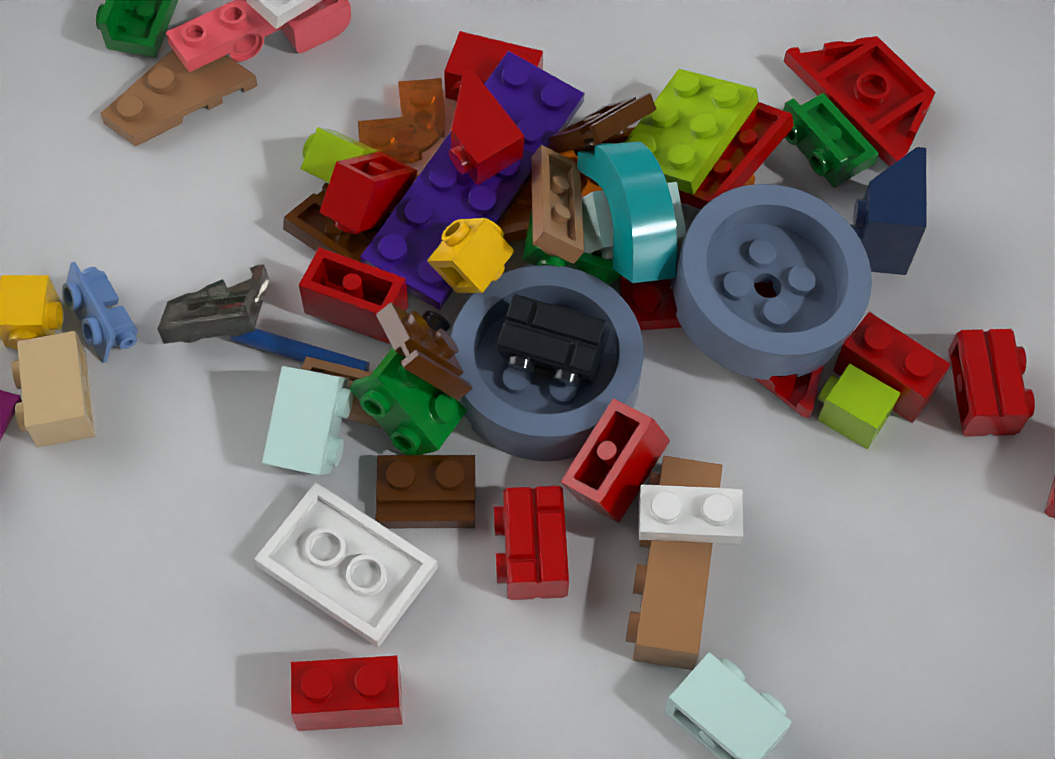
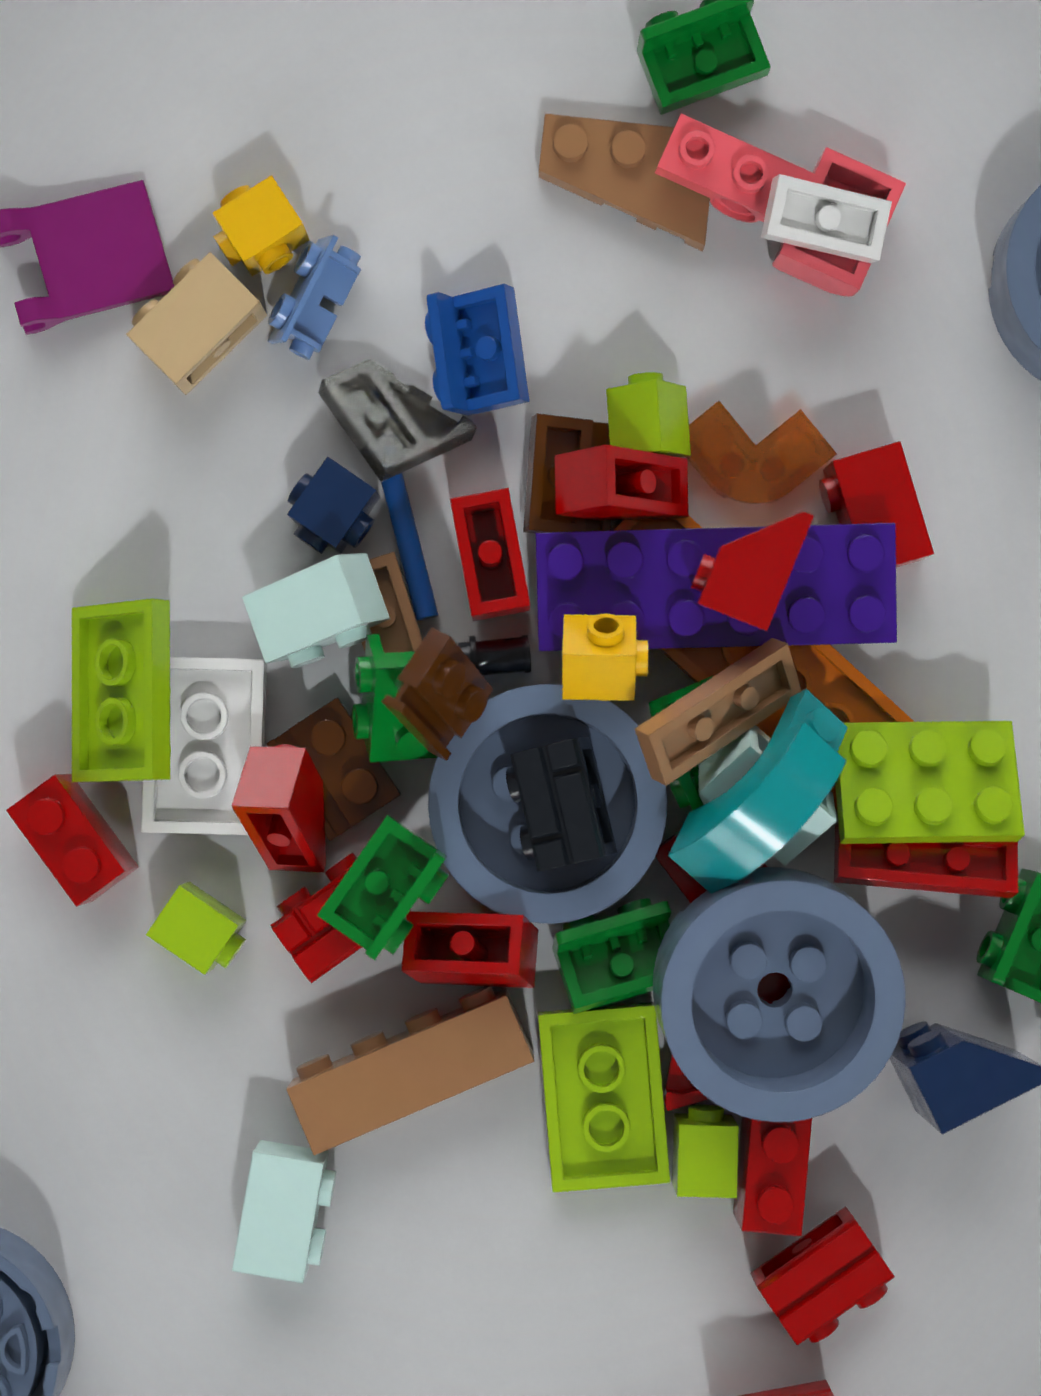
camera: 50 degrees right, 25 degrees up
(216, 229) = (477, 350): none -> blue bracket
(245, 377) = (332, 508): none -> dark blue brick
(265, 587) = (121, 691): none -> lime plate
(432, 526) = (283, 807): none -> red slope
(476, 646) = (198, 929): none -> lime brick
(535, 477) = (383, 888): none -> green bracket
(602, 124) = (865, 690): reddish brown plate -> none
(678, 381) = (611, 956): none -> green bracket
(691, 514) = (452, 1065): white plate -> none
(778, 449) = (604, 1097): none -> lime plate

